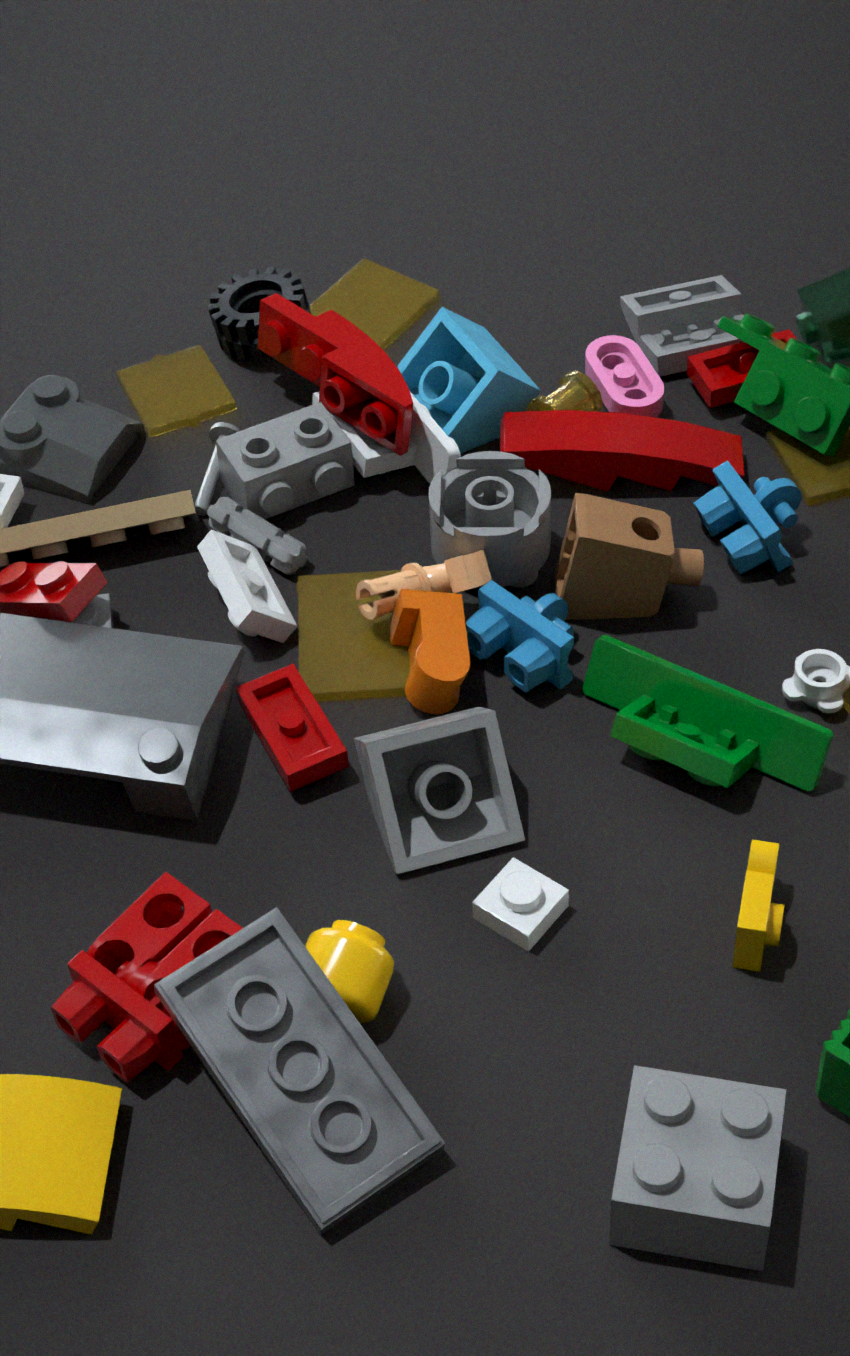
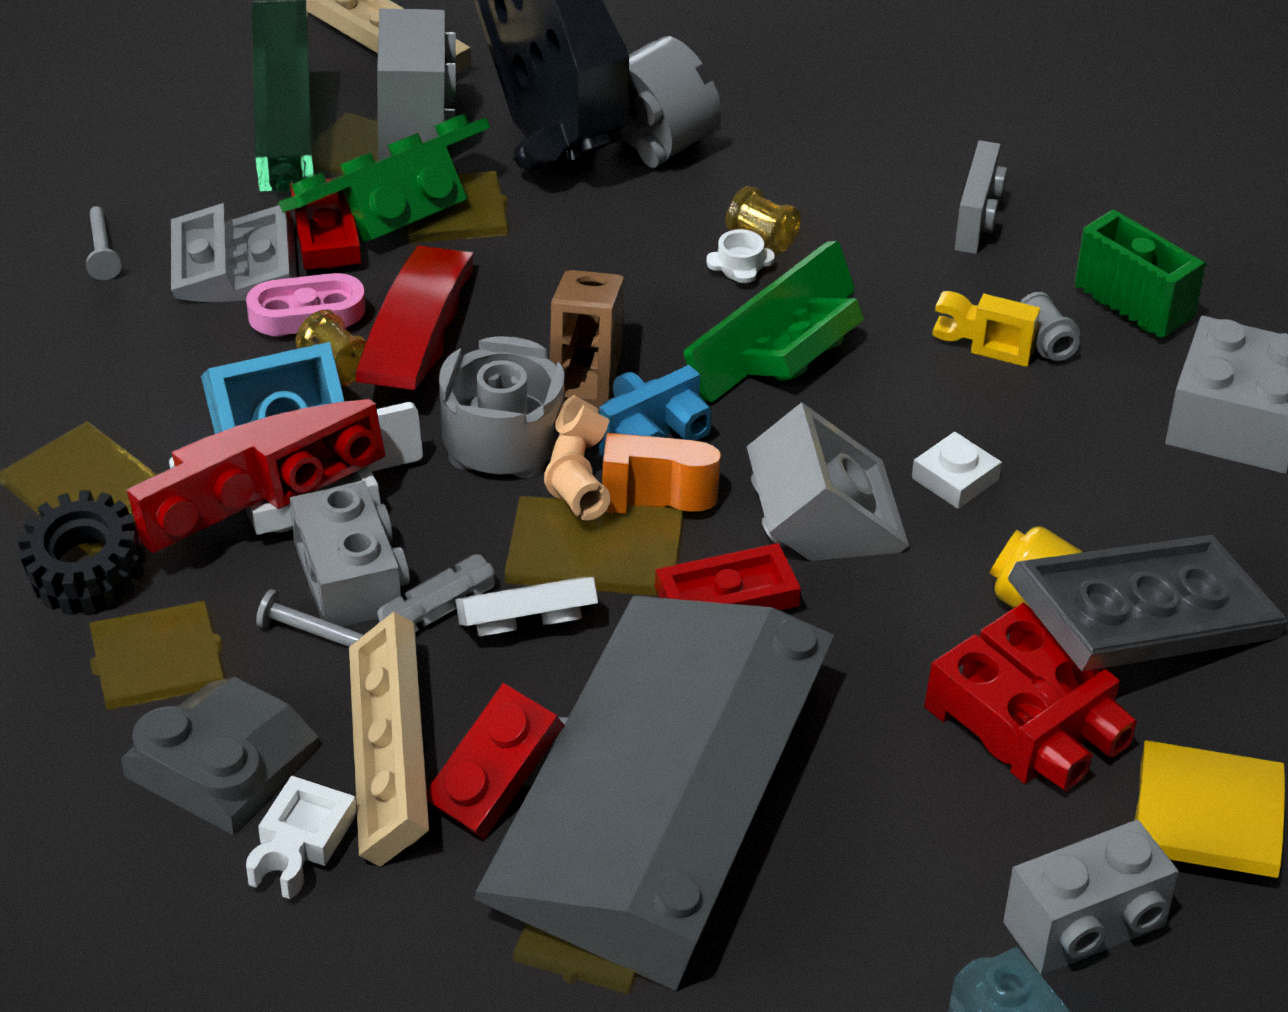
camera: 85 degrees left, 5 degrees down
(647, 251) = (102, 262): none -> light grey pin
(758, 513) = (535, 249): dark azure hips -> none
(770, 973) = (1056, 335): none -> light grey pin

